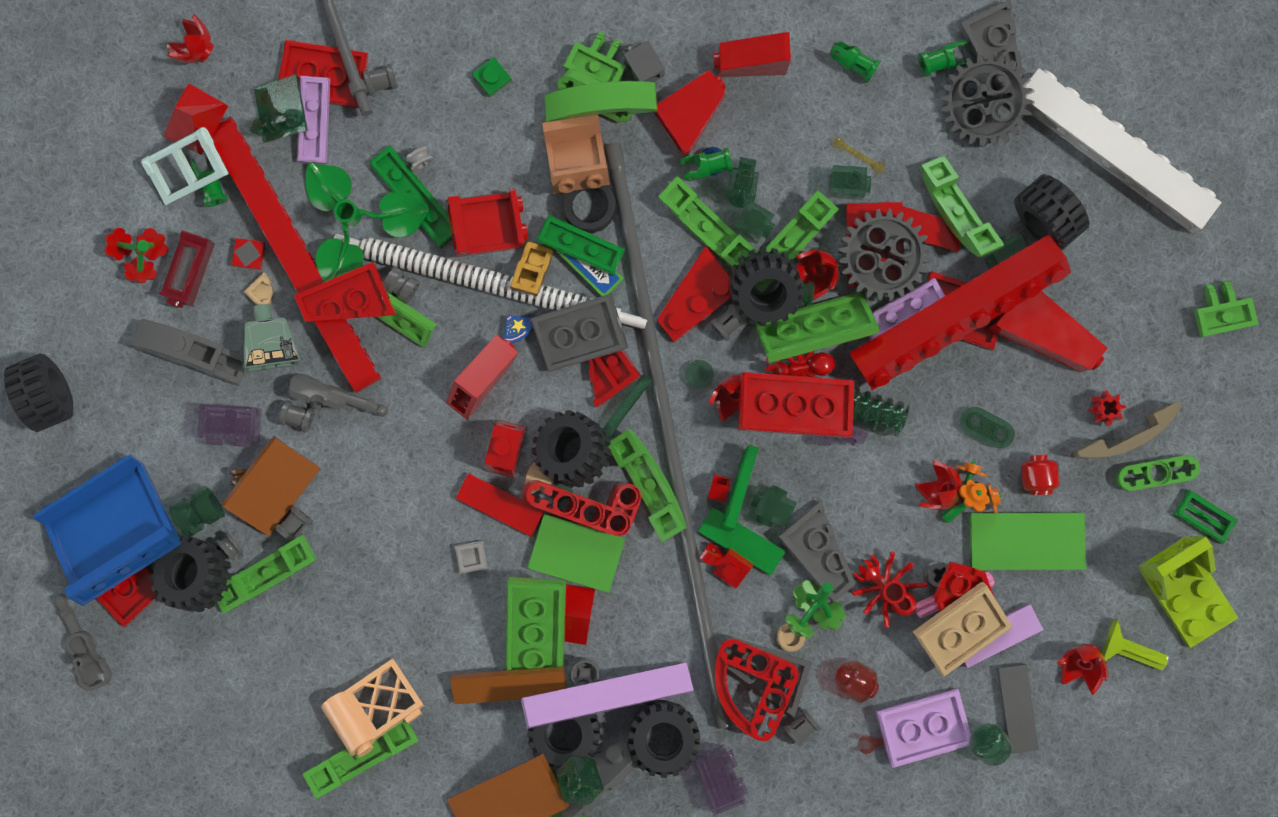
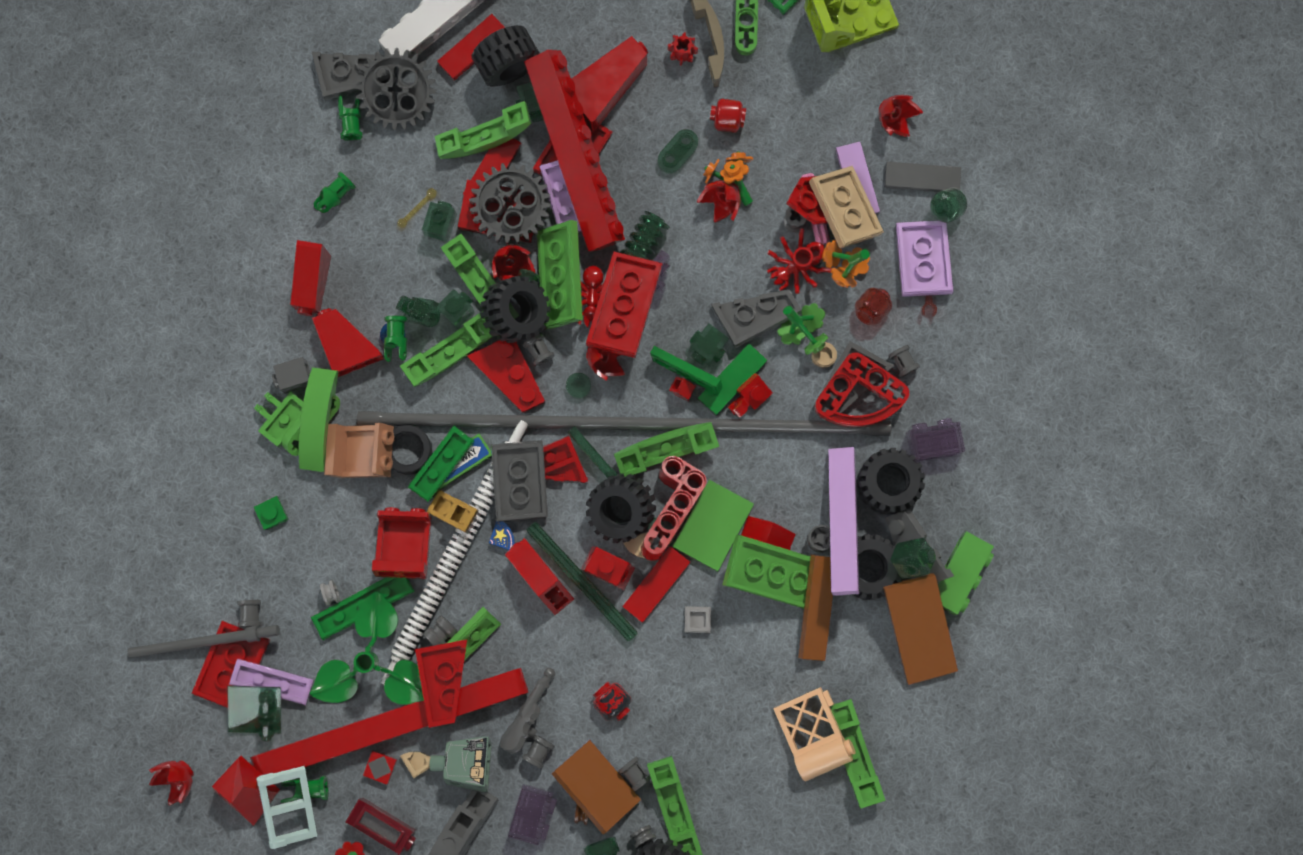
camera: 75 degrees left, 5 degrees down
(365, 483) = (612, 701): none -> head
(486, 424) = (582, 581): none -> clear green axle
(899, 648) = (854, 263): none -> orange plant
(1027, 541) = (782, 138): bright green tile -> none
(1038, 161) = (459, 57): none -> red tile
(1118, 645) = (884, 84): lime piece -> none

